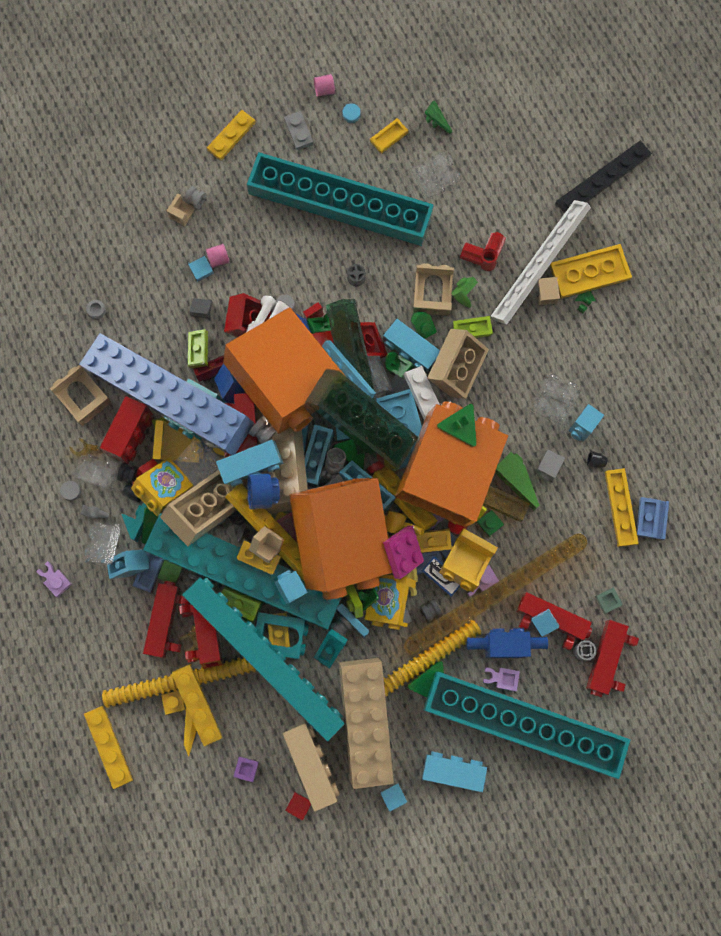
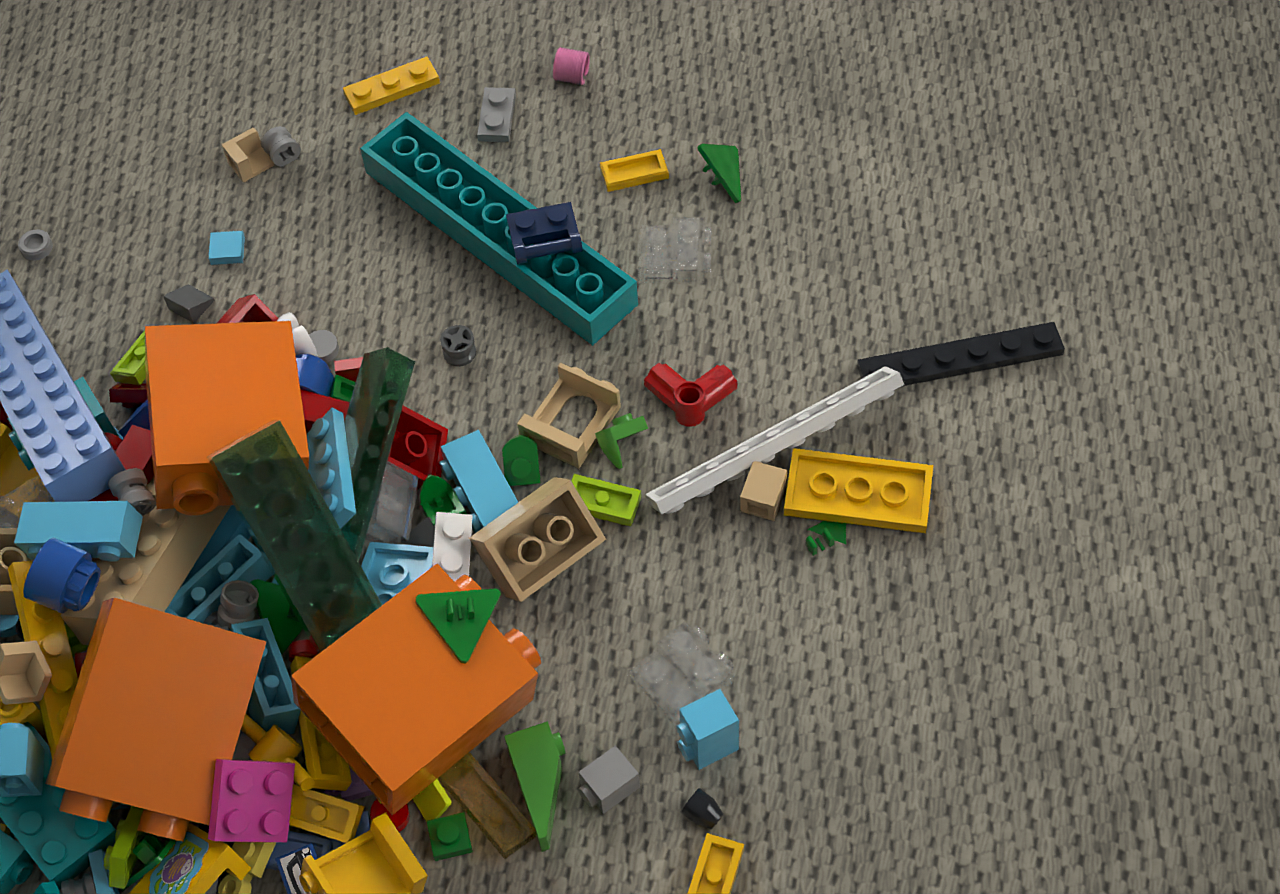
camera: 30 degrees right, 20 degrees down
(217, 255) = (259, 235): bright pink piece -> none
(351, 113) = (593, 119): medium azure tile -> none
(371, 192) = (542, 226): none -> dark blue plate

